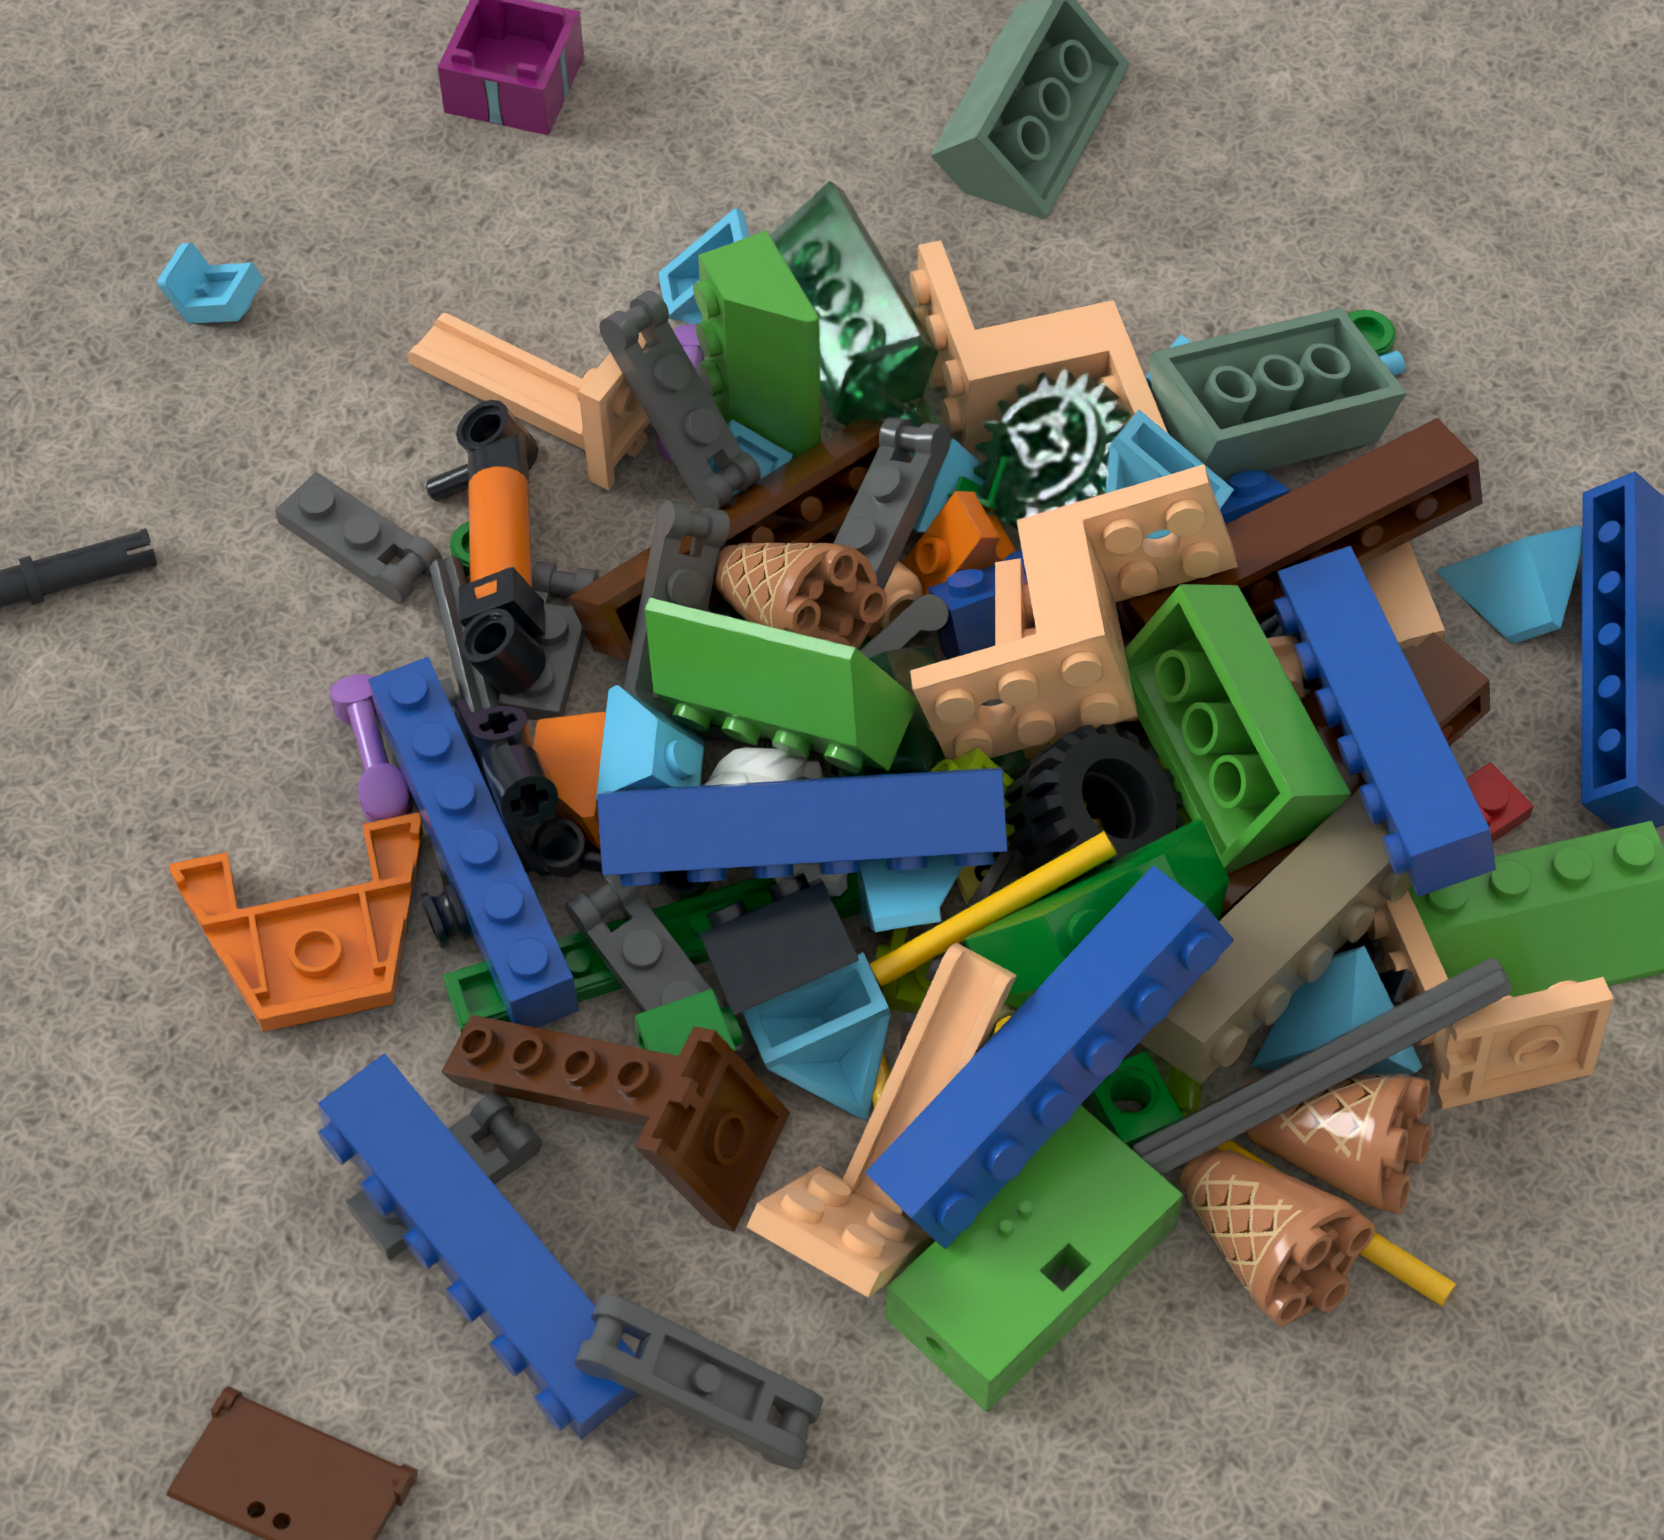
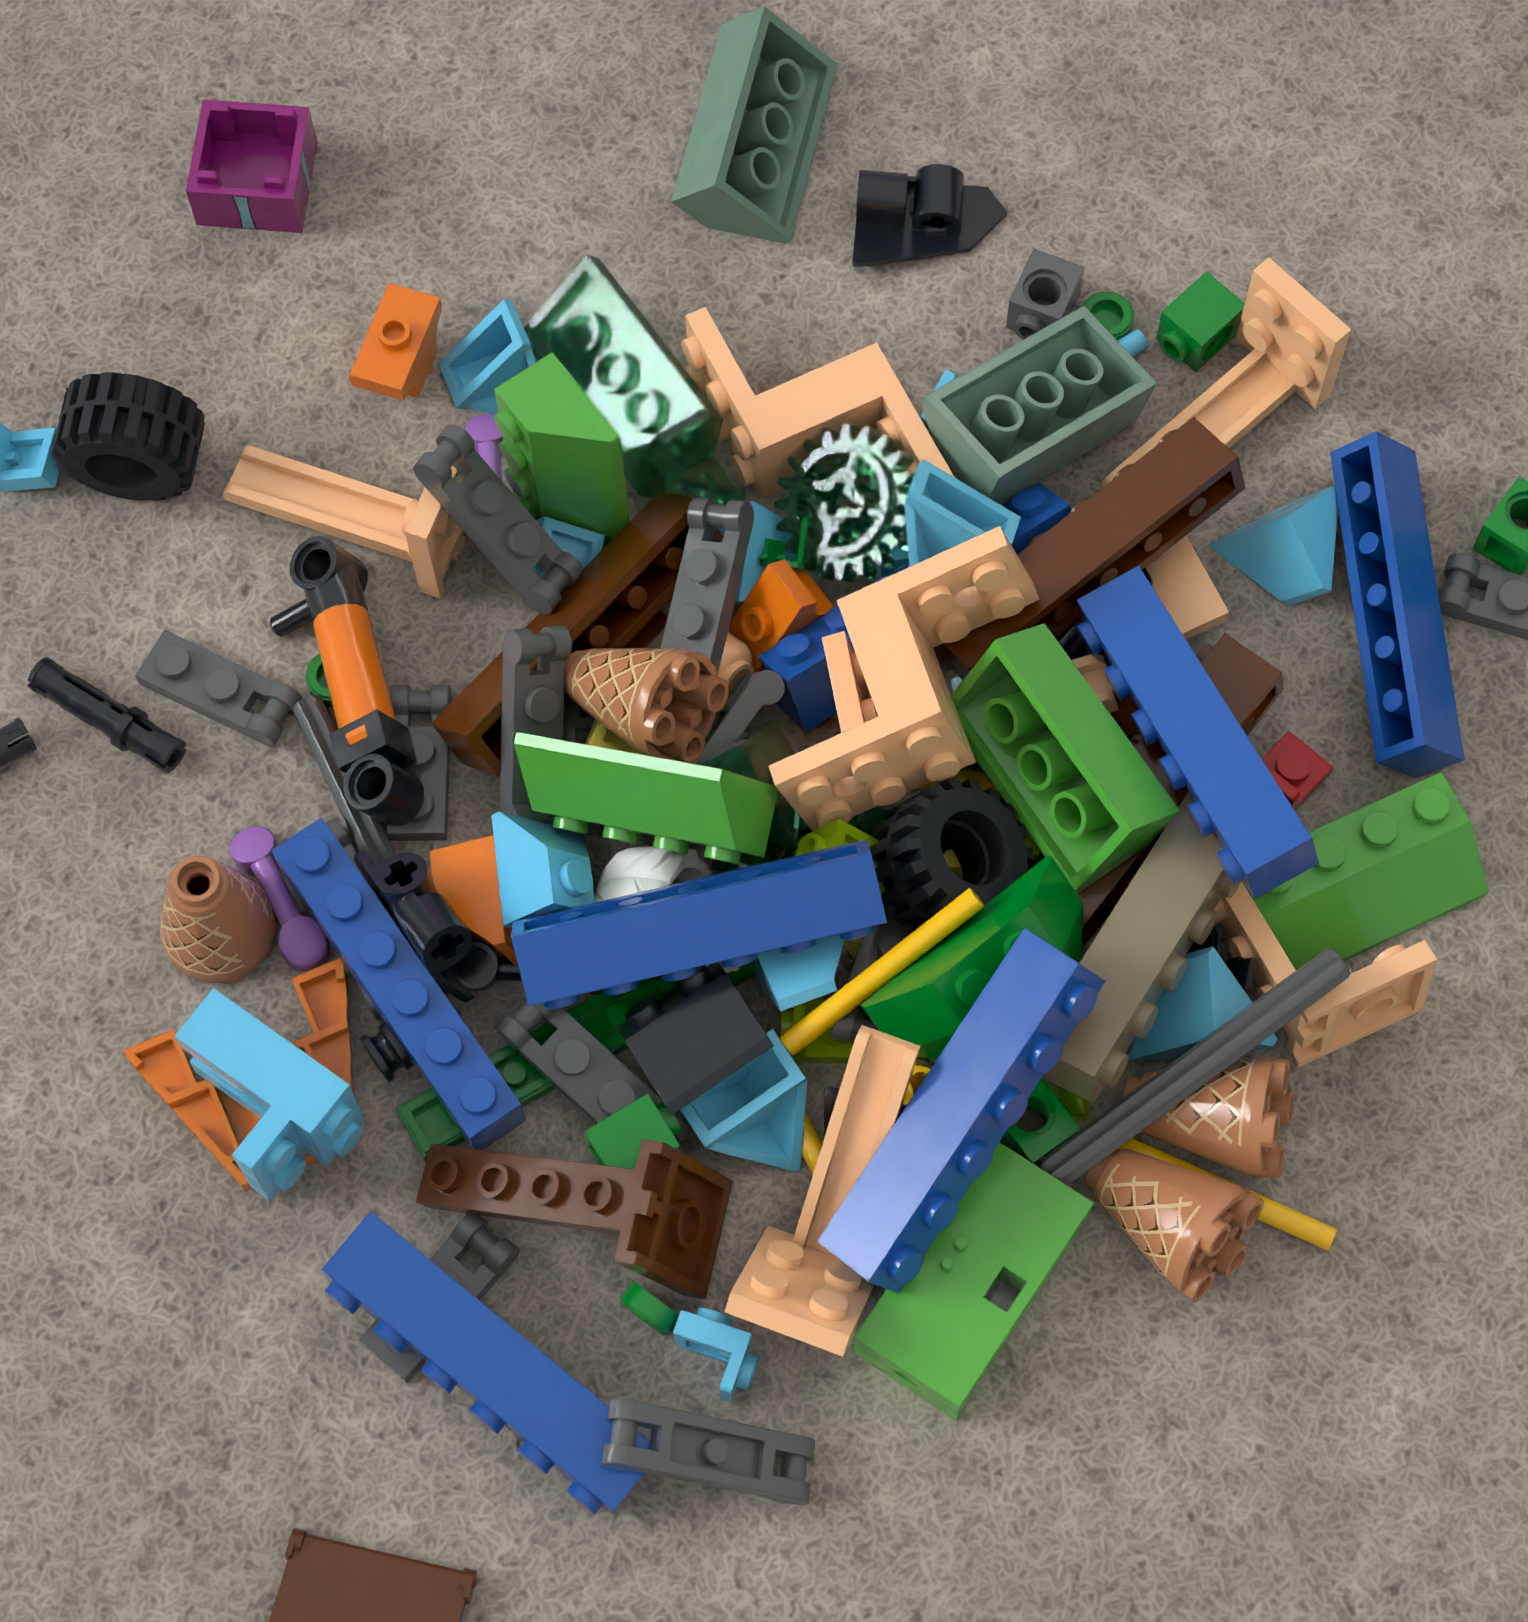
camera: 10 degrees left, 10 degrees up
(252, 556) = (124, 726): none -> black pin
(295, 748) = (215, 921): none -> nougat cone
(322, 277) = (128, 436): none -> black tyre
(327, 925) = (296, 1098): none -> medium azure brick
(620, 242) = (399, 344): none -> orange brick
(669, 1226) = (649, 1309): none -> green tile
(738, 1272) = (712, 1336): none -> medium azure bracket
(1188, 211) = (920, 215): none -> black panel
(1303, 290) = (1045, 279): none -> dark grey brick
(1465, 351) = (1199, 322): none -> green brick
(1557, 381) = (1292, 349): none -> light nougat bracket

